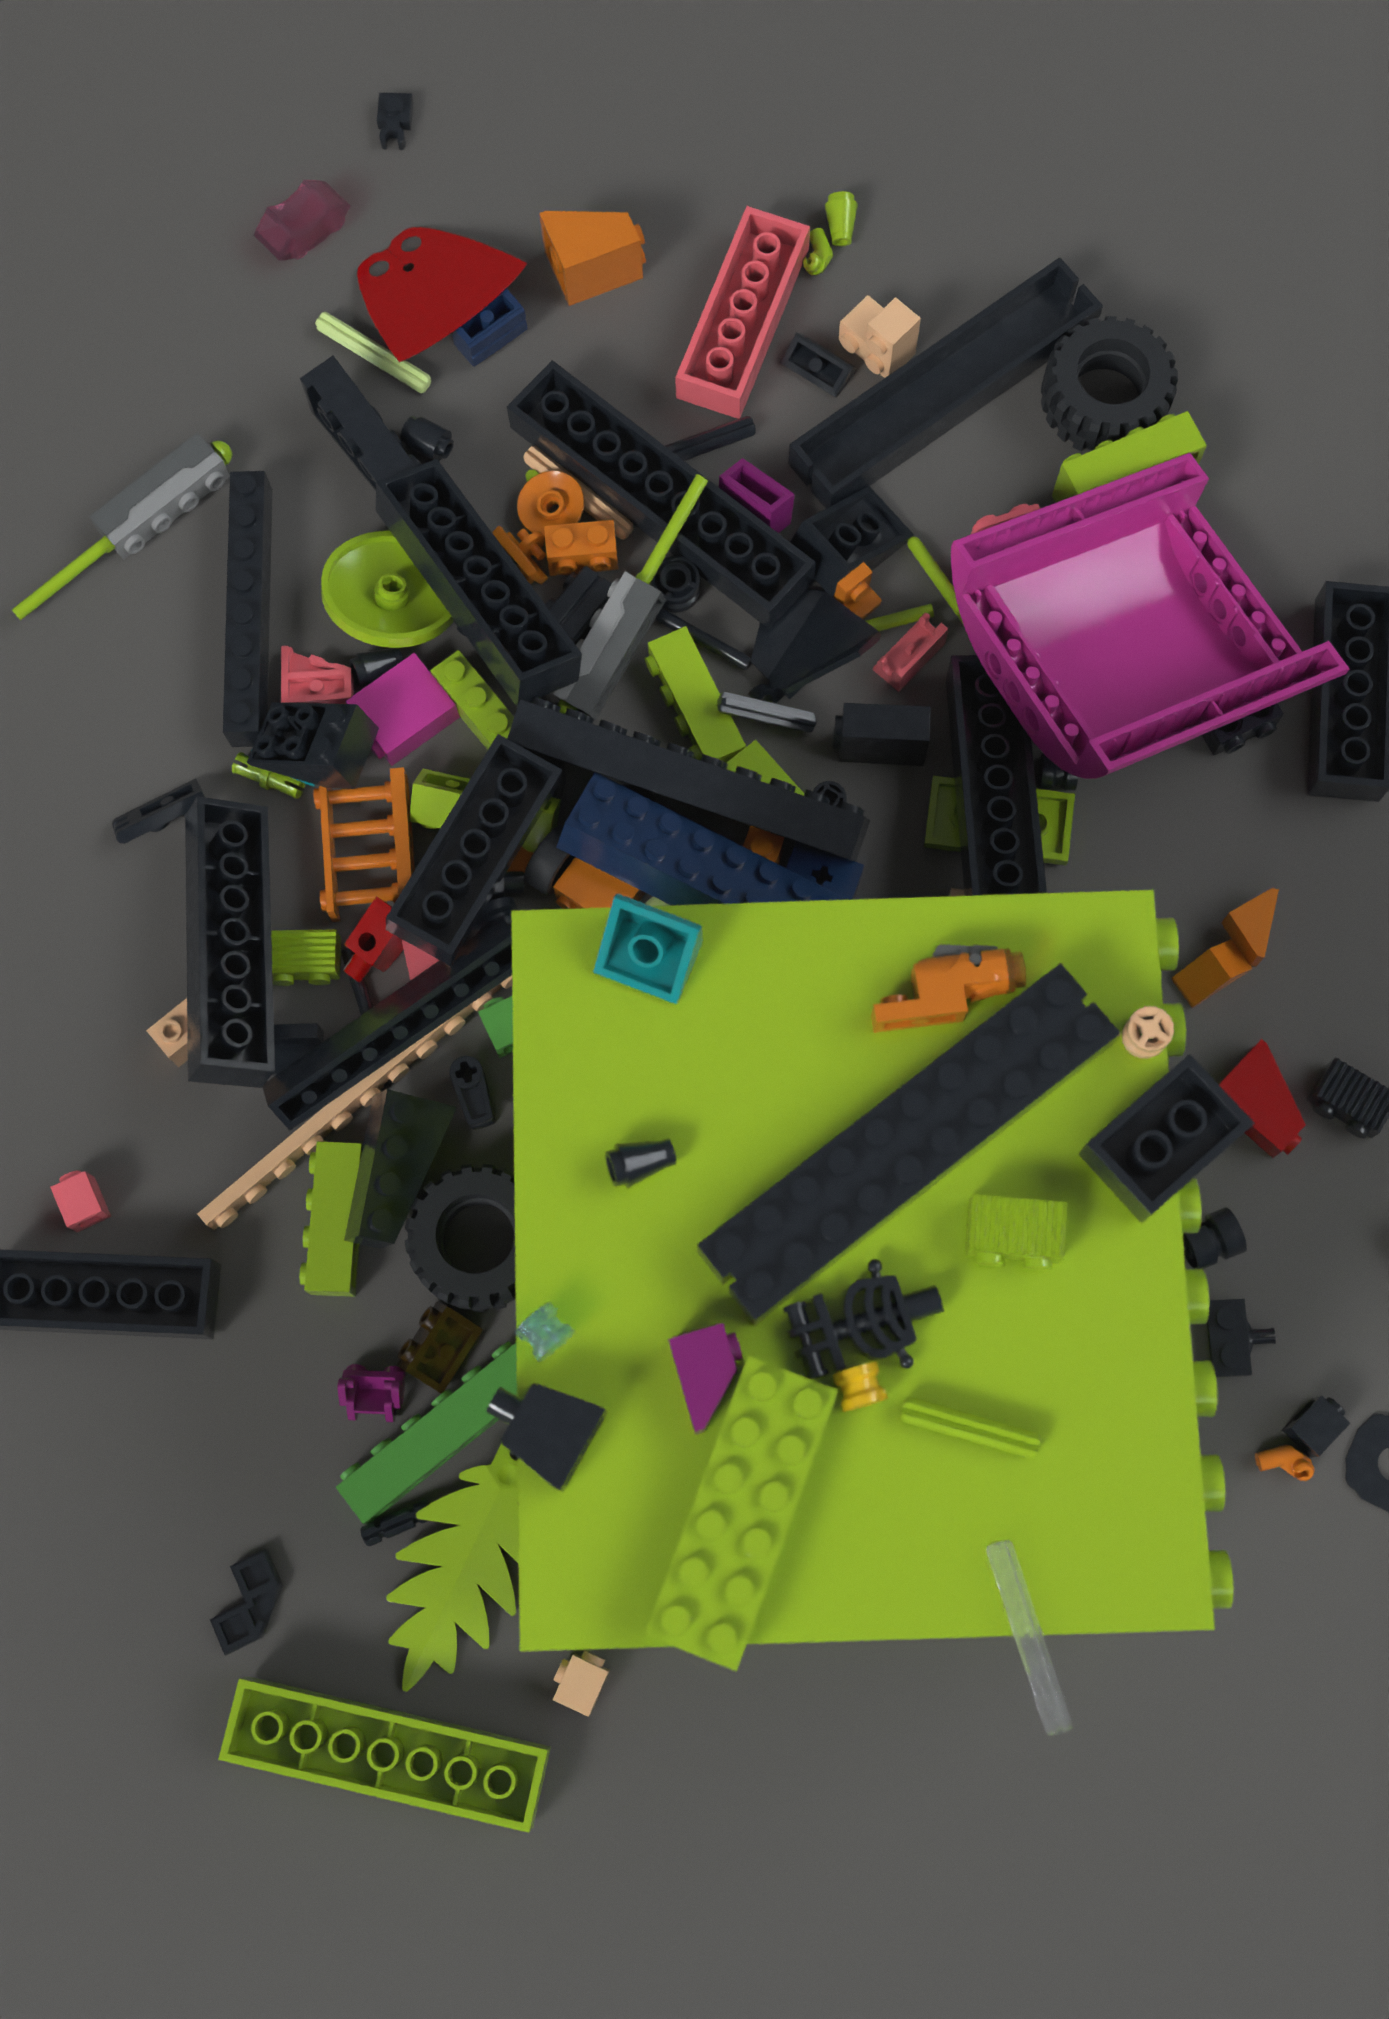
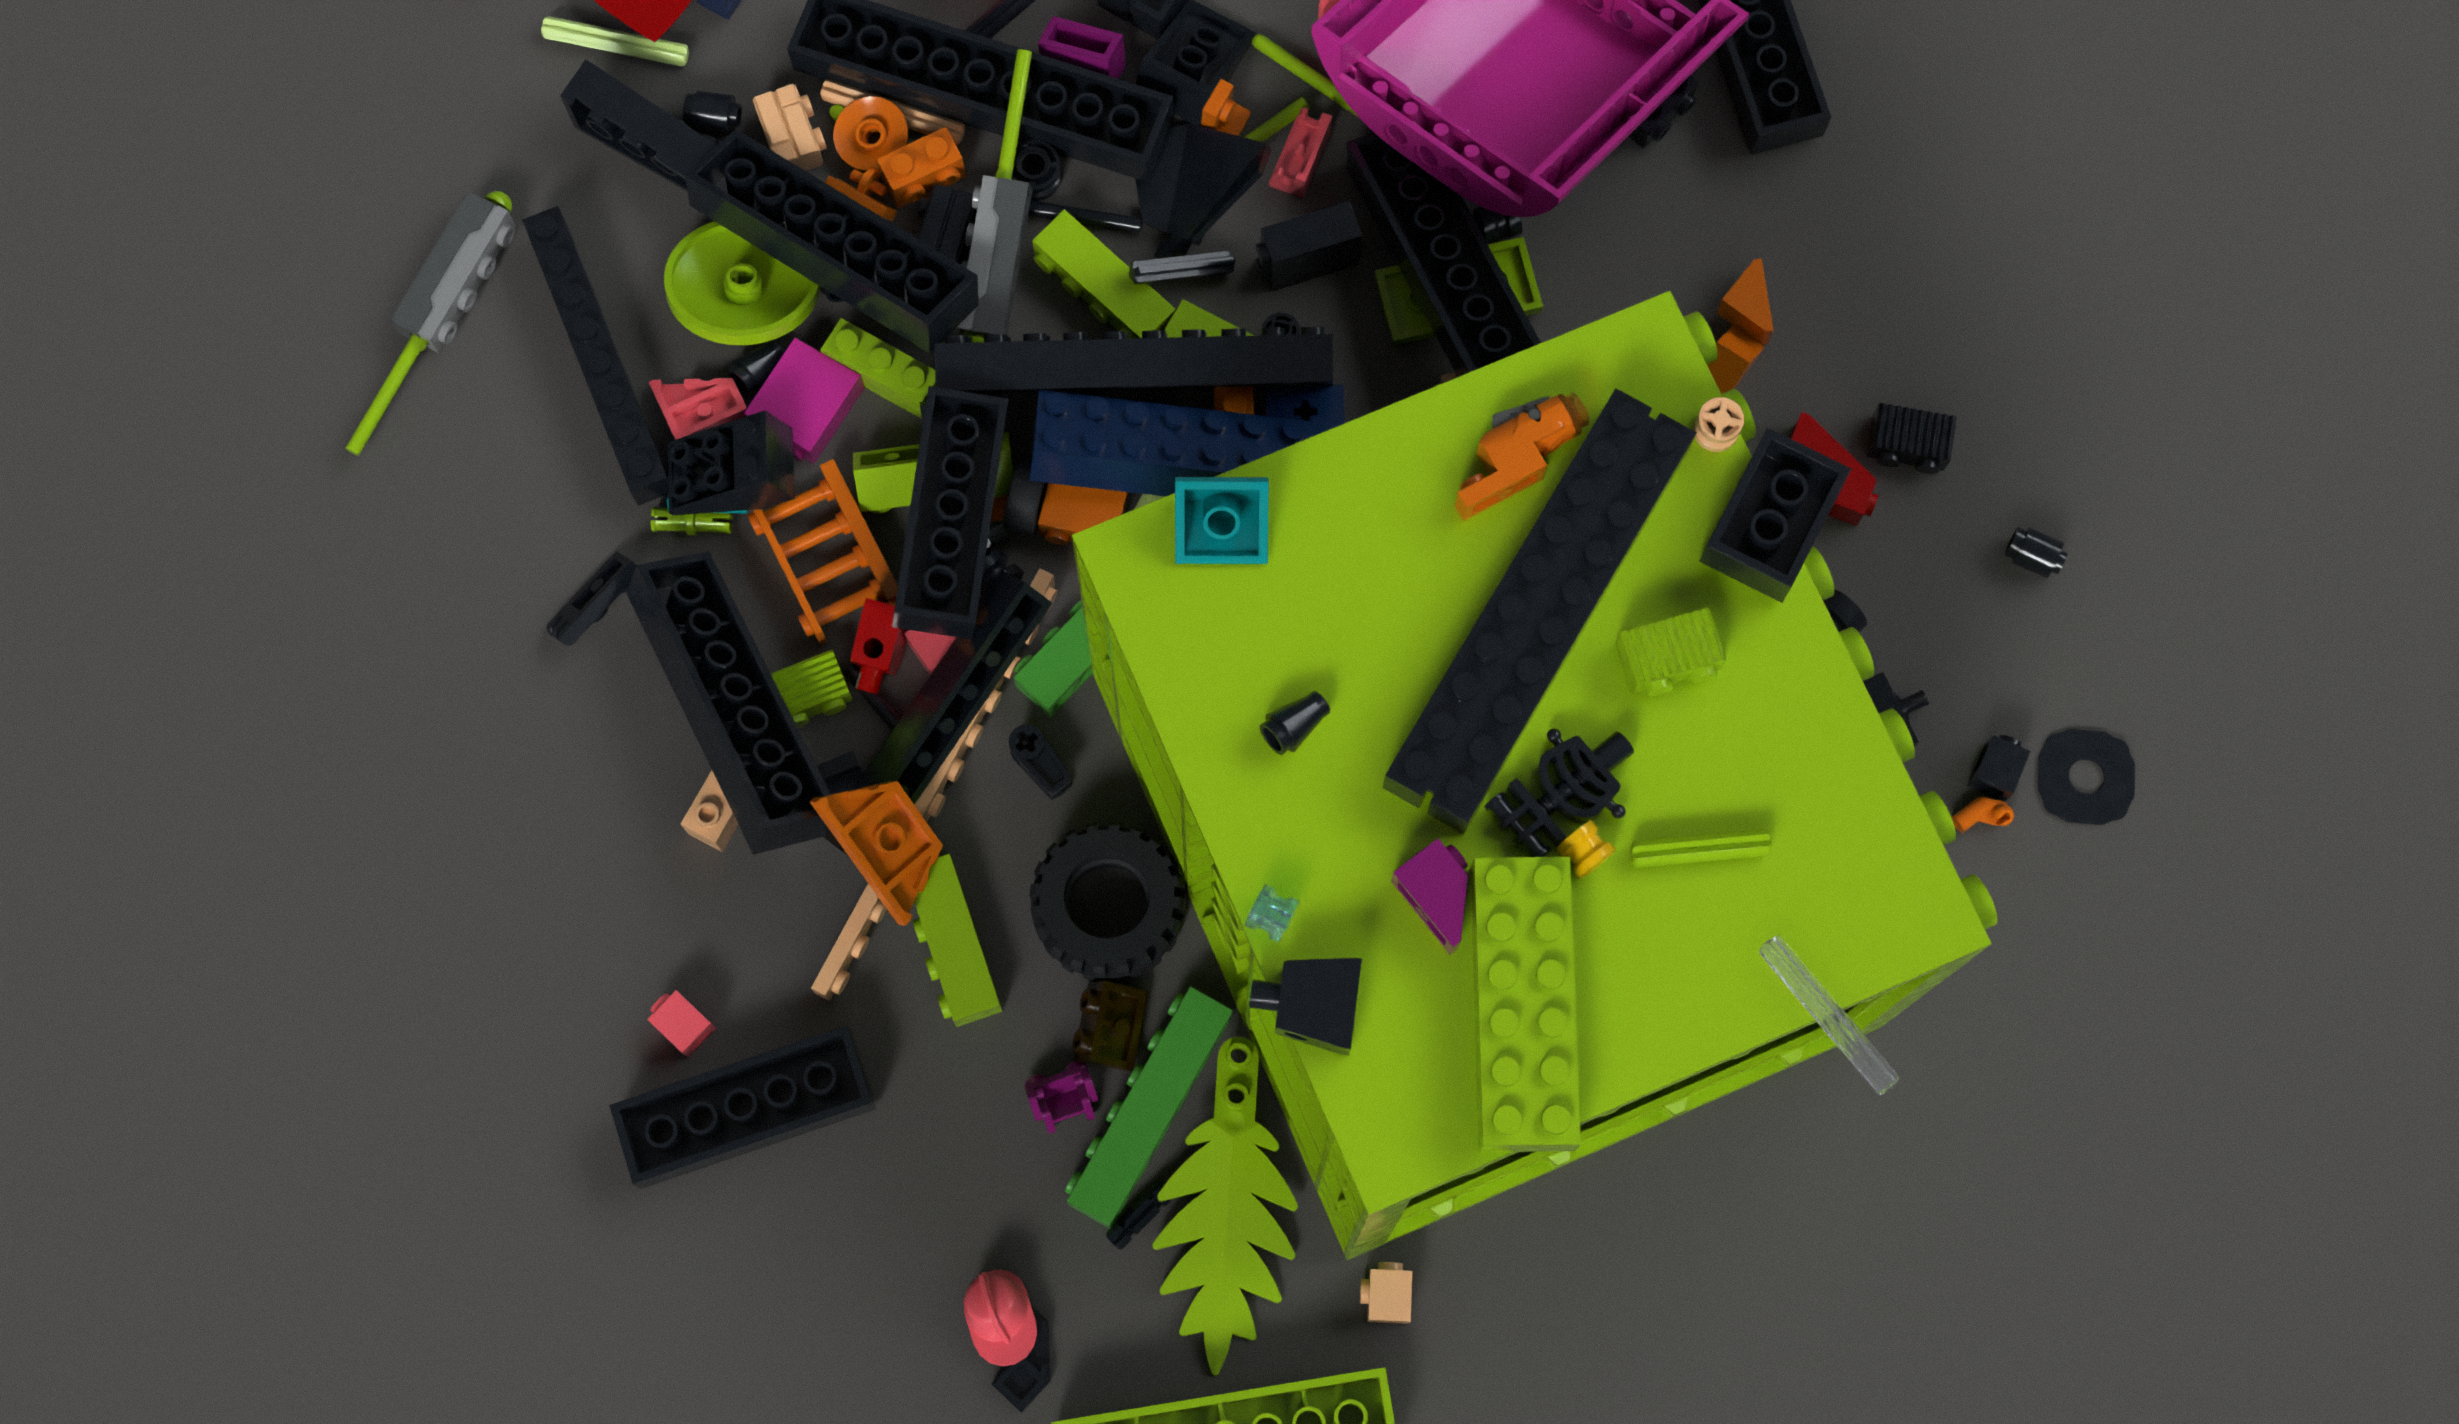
camera: 25 degrees left, 0 degrees up
(240, 1564) = (1000, 1317): none -> coral piece
(305, 1111) = (884, 841): none -> orange wing
(394, 1160) = (992, 860): black wedge -> none
(484, 474) = (787, 126): none -> light nougat brick

